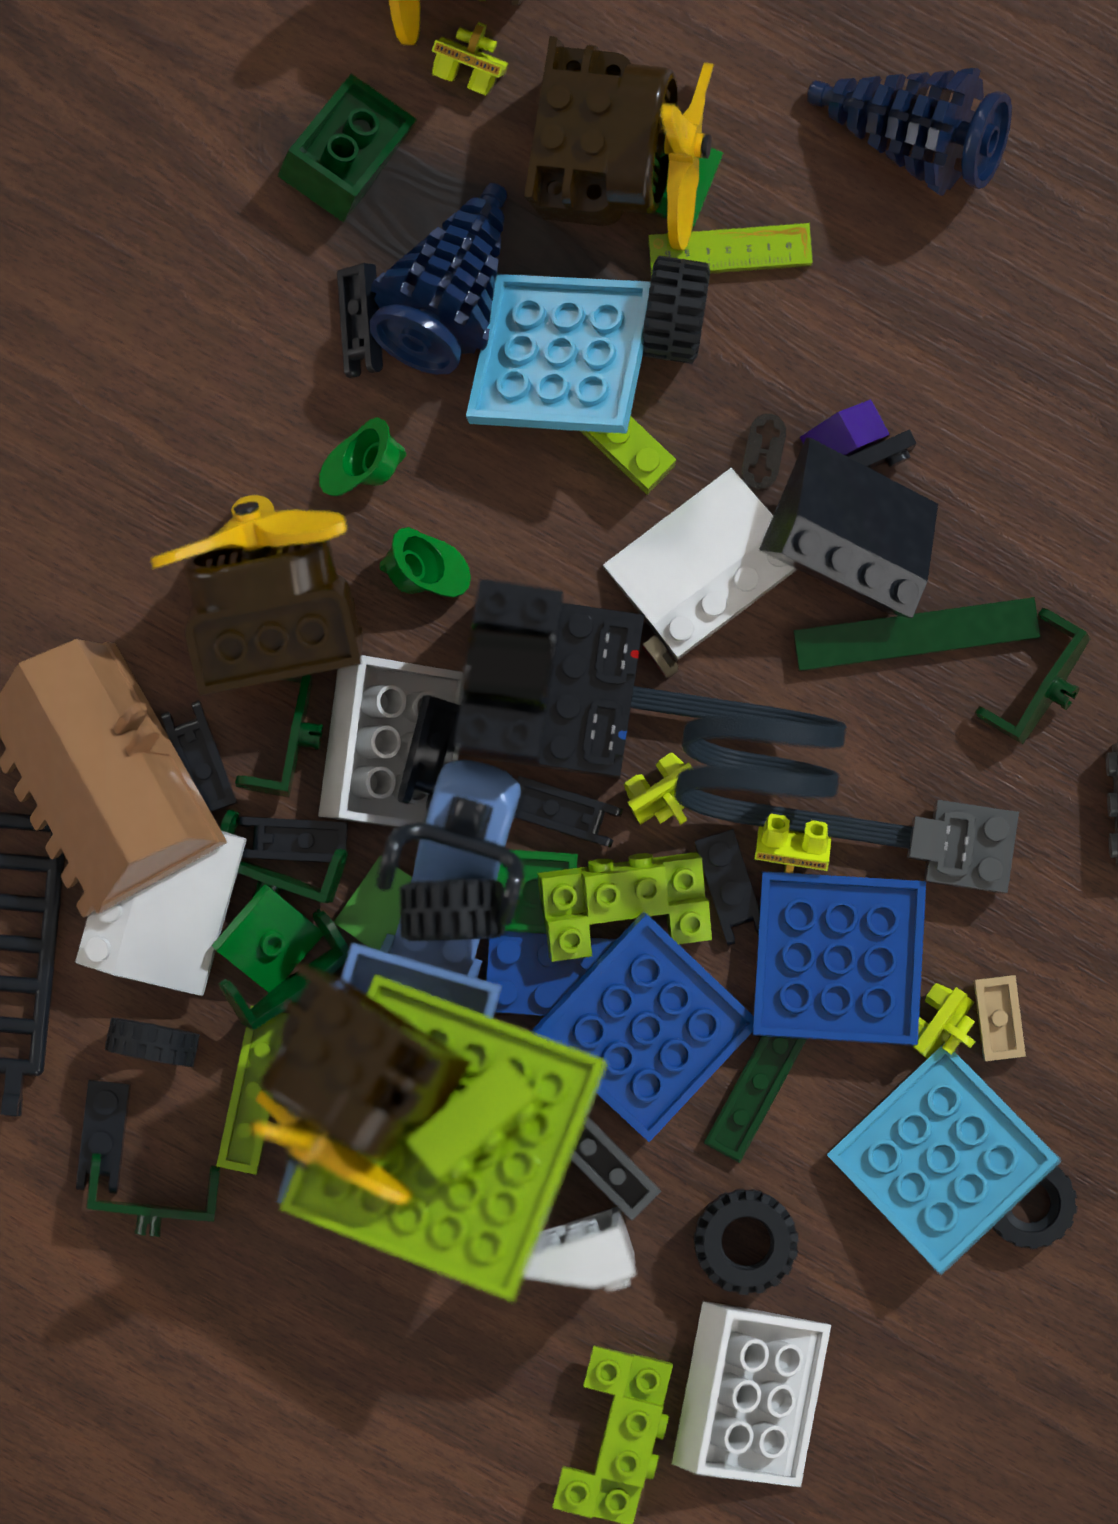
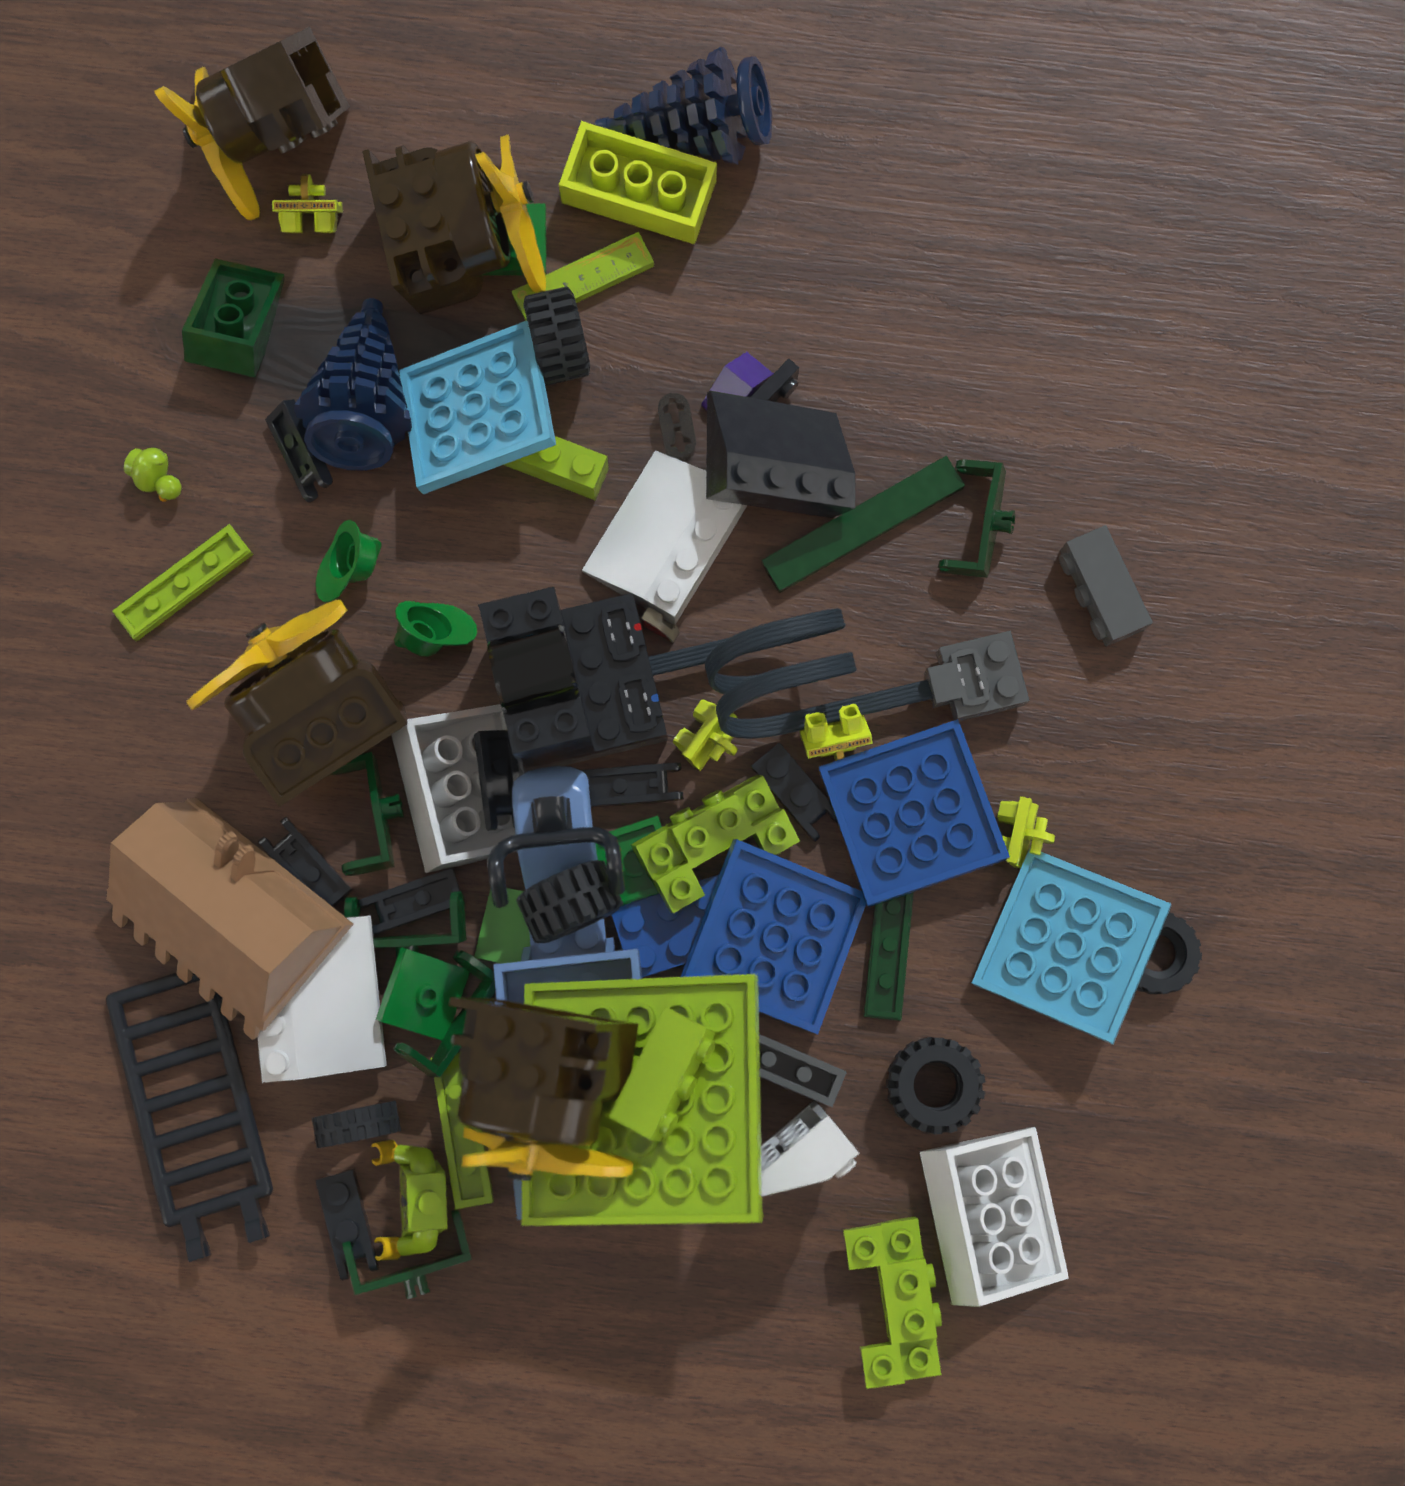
camera: 30 degrees left, 5 degrees down
(185, 411) = (182, 582): none -> lime tile
(186, 1143) = (421, 1199): none -> lime torso
(194, 282) = (150, 471): none -> lime animal
(829, 172) = (637, 182): none -> neon yellow brick
(999, 1018) = (1065, 809): tan plate -> none

